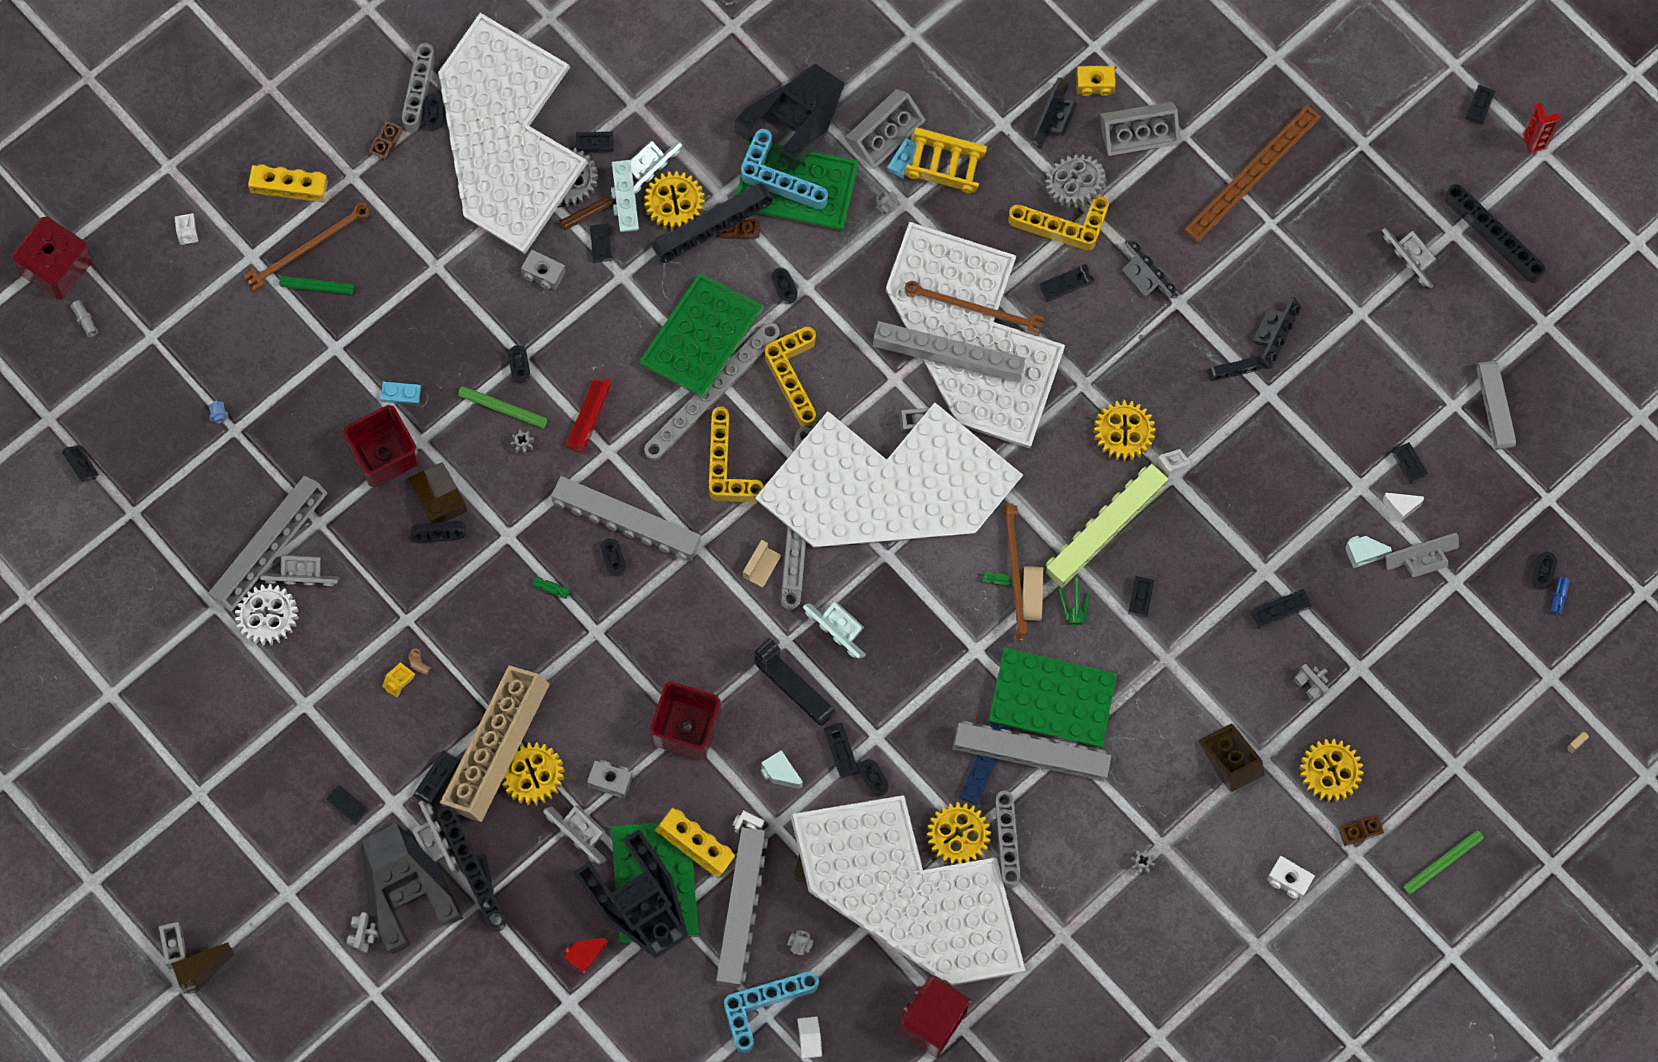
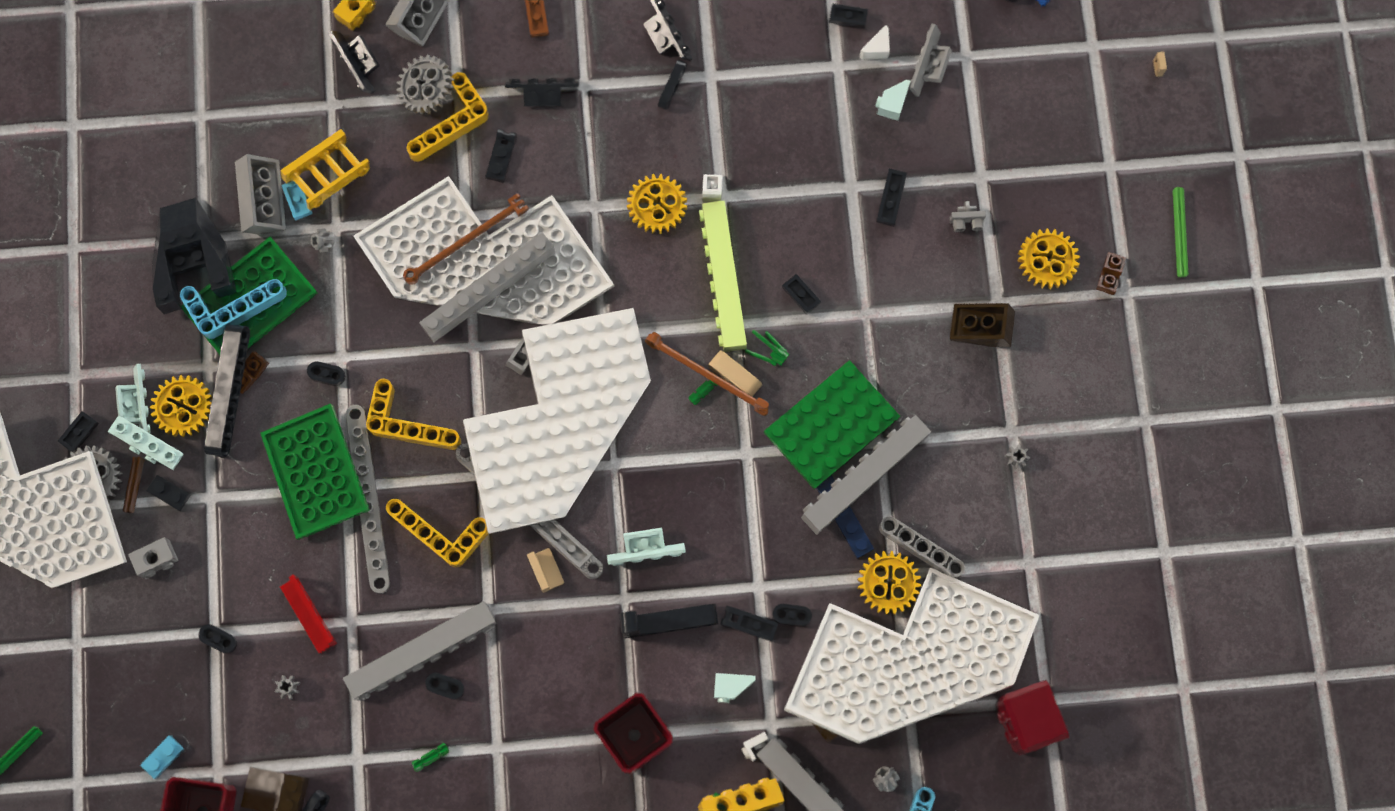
camera: 50 degrees left, 5 degrees up
(502, 407) = (243, 680): bright green axle -> none
(1284, 868) = (1120, 346): white brick -> none

